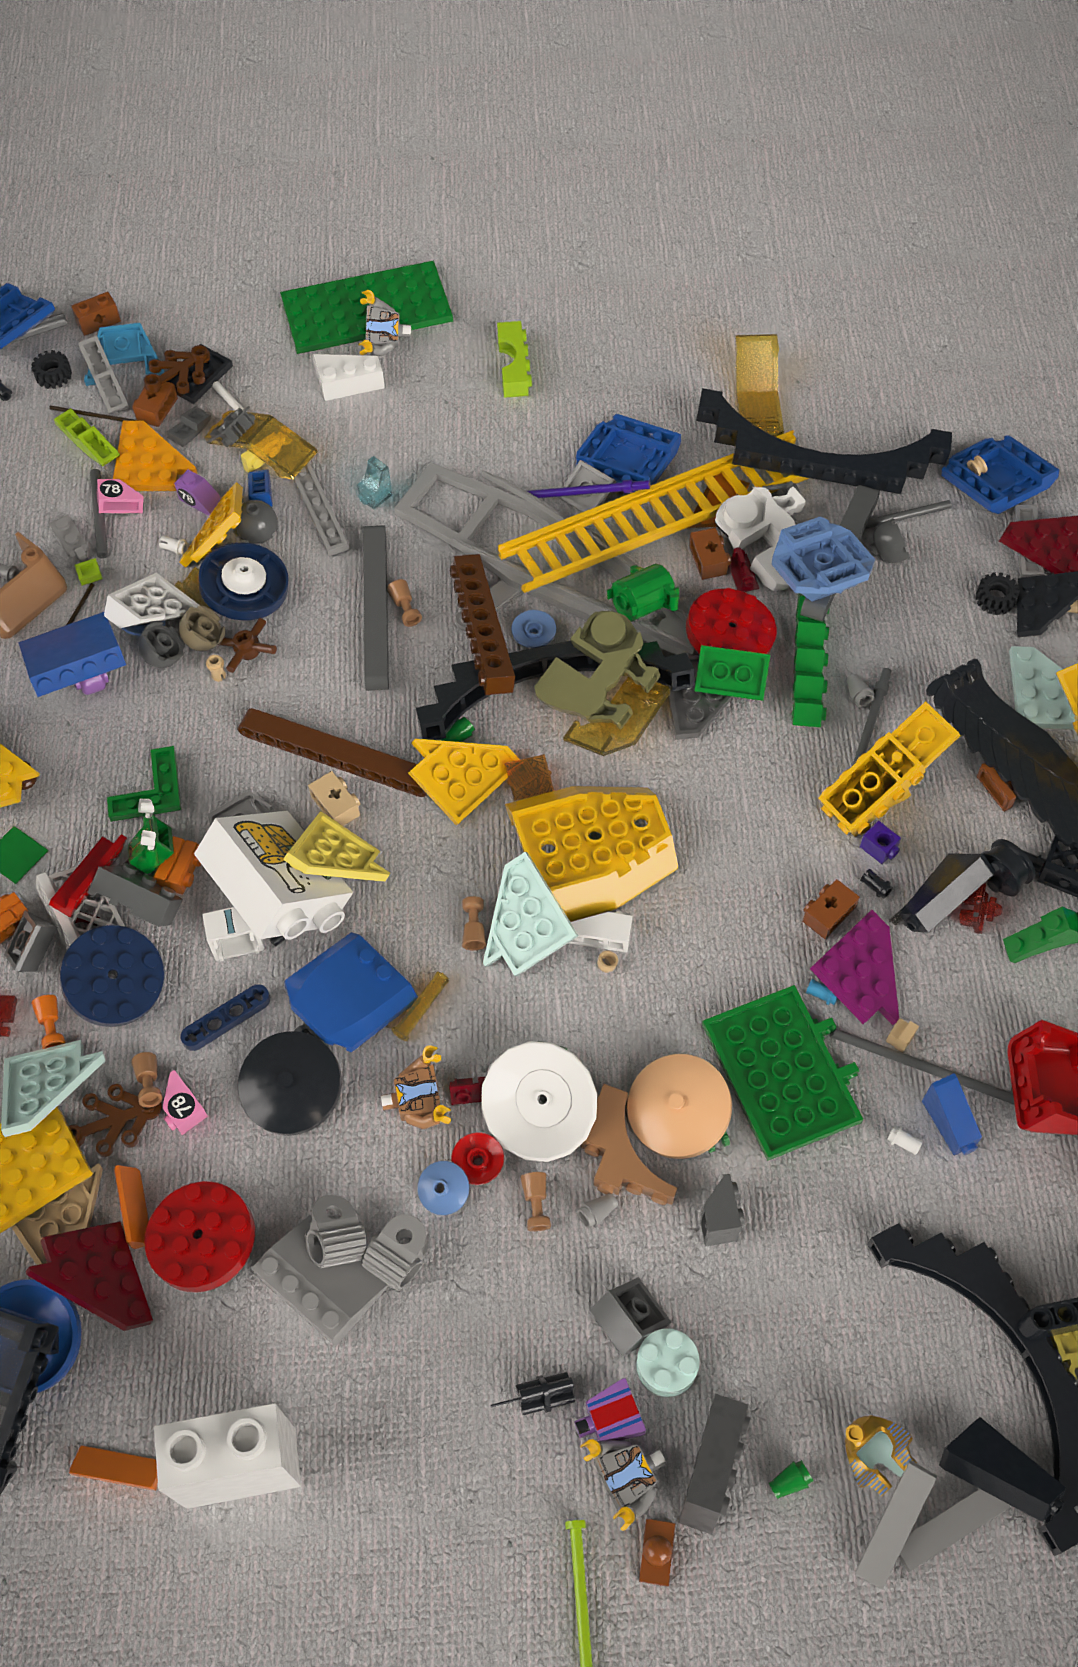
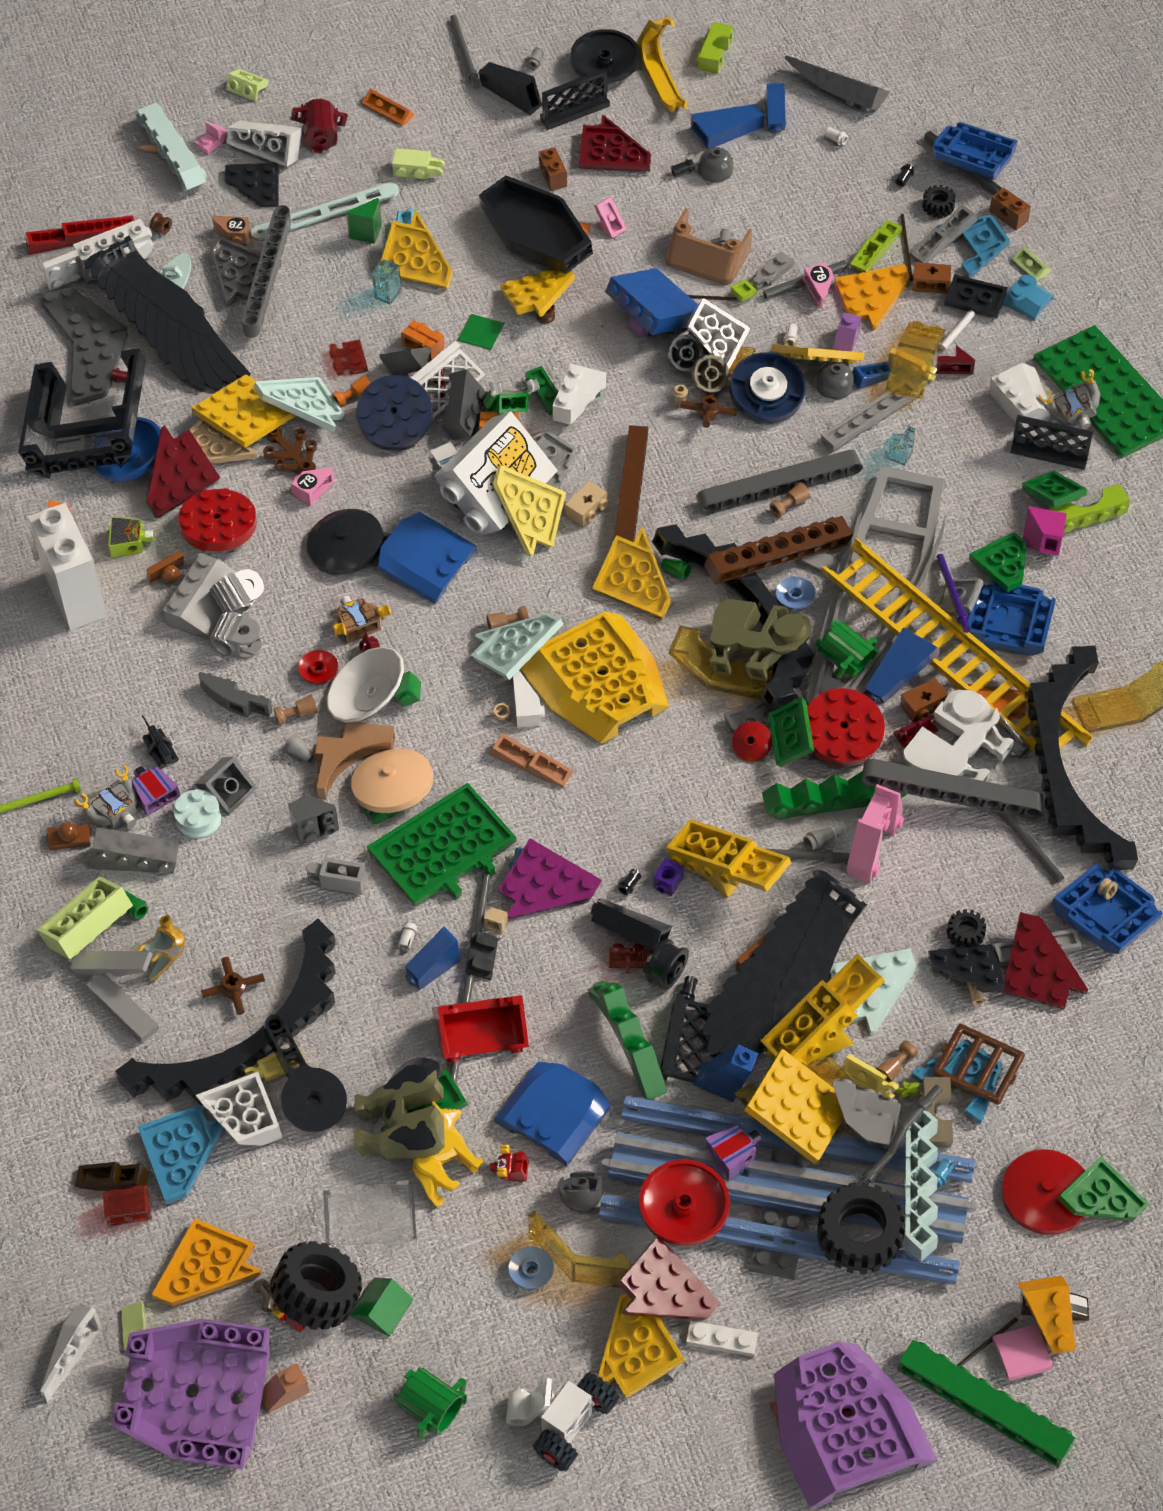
camera: 75 degrees right, 5 degrees down
(76, 887) = (445, 365): red fence -> none
(132, 1204) = (235, 478): orange slope -> none
(145, 1070) = (329, 456): medium nougat piece -> none
(172, 766) = (576, 391): none -> white wedge
(174, 320) = (1030, 263): none -> yellowish green slope
(174, 1368) = (128, 536): none -> torso
(190, 426) = (922, 310): dark grey slope -> none
(197, 356) = (987, 287): reddish brown plant -> none
(218, 333) = (1027, 297): none -> dark azure slope
(223, 1013) = (385, 493): dark blue beam -> none
(233, 427) = (903, 324): dark grey hinge -> none
(251, 1324) = (166, 569): none -> dark orange tile
(280, 407) = (958, 364): none -> dark red slope
(420, 1006) = (429, 604): clear yellow pin -> none
(424, 360) = (1049, 449): none -> black fence
(455, 1188) = (291, 653): medium blue dish -> none
(484, 374) = (1054, 489): none -> green plate
(484, 1285) = (228, 696): none -> dark grey slope
(529, 777) = (650, 624): clear orange piece -> none
(535, 395) = (1044, 530): none -> dark pink slope
(557, 441) = (1003, 561): none -> green plate
(666, 545) = (901, 663): none -> blue slope
(682, 949) = (529, 761): none -> nougat slope
(712, 722) = (761, 745): none -> red dish
(808, 1199) = (338, 875): none -> light grey hinge
(813, 1551) = (84, 917): none -> yellowish green brick
(821, 558) = (911, 754): medium blue piece -> none
(830, 909) = (594, 852): dark orange brick -> none
(882, 628) = (882, 814): none -> bright pink wedge
(889, 543) = (989, 834): dark grey cylinder -> none
(944, 1062) = (481, 955): none -> black piece
(954, 1369) = (226, 985): none -> reddish brown bar
(1002, 1470) = (165, 1021): black slope -> none

